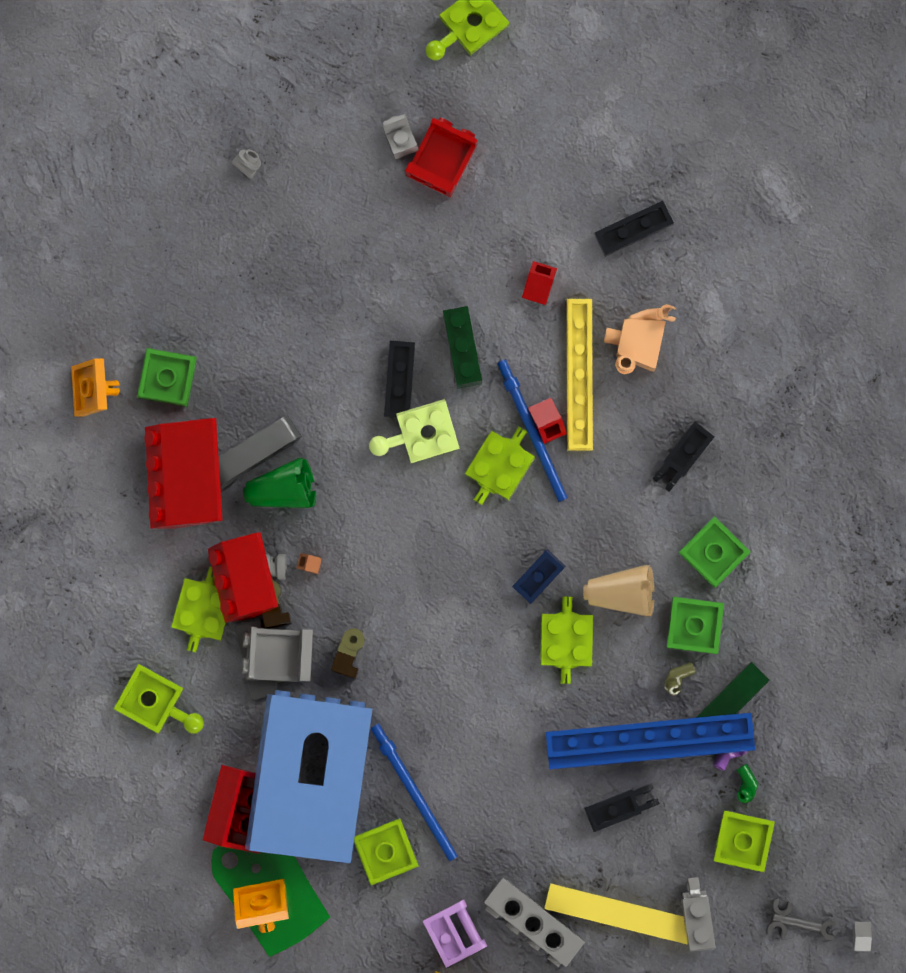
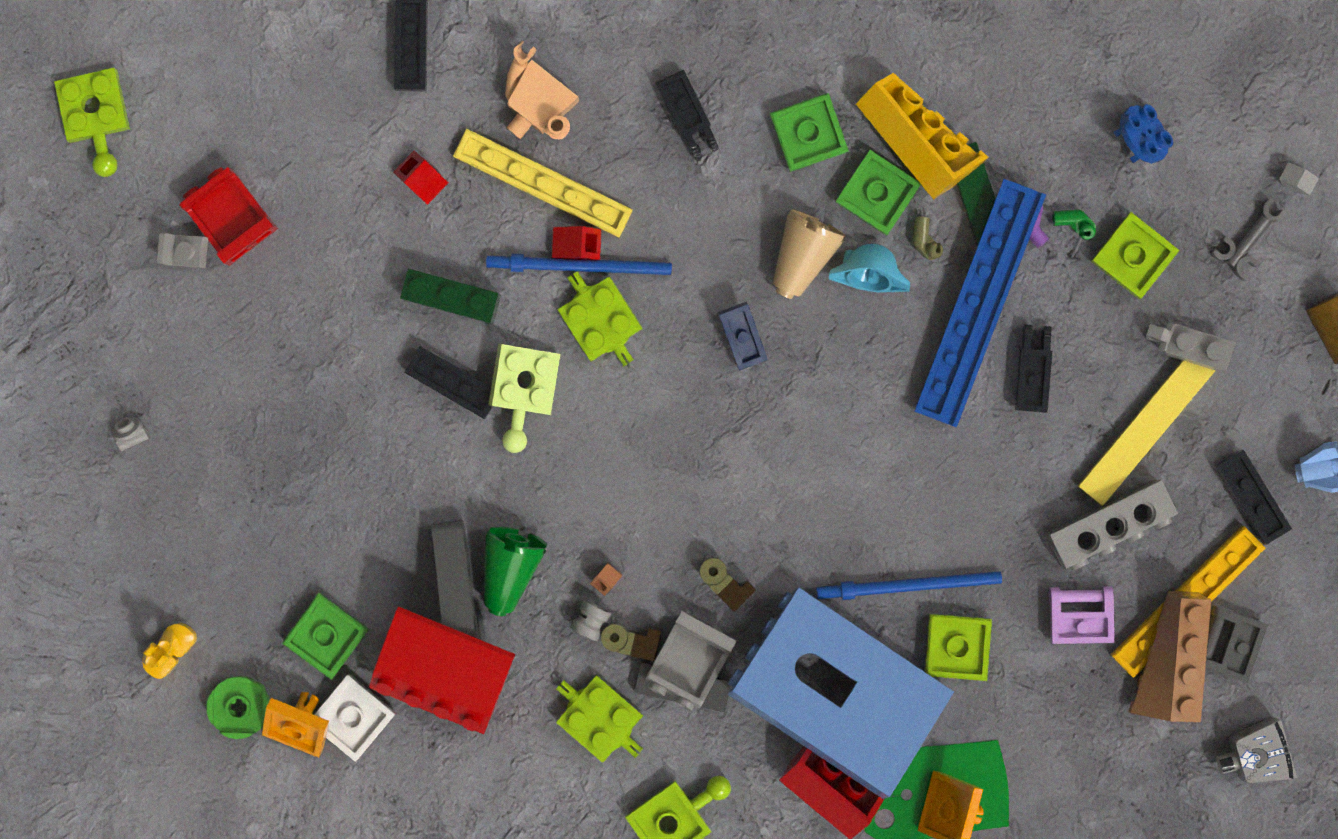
camera: 65 degrees left, 5 degrees up
(70, 334) = (226, 719): none -> bright green plate
(94, 264) = (163, 657): none -> yellow piece
(117, 427) = (354, 717): none -> white plate
(242, 577) = (587, 660): red slope -> none
(566, 640) = (825, 340): lime plate -> none
(635, 647) = (870, 269): none -> medium azure hat
(752, 634) = (919, 135): none -> yellow wedge
(837, 802) = (1144, 134): none -> blue plate

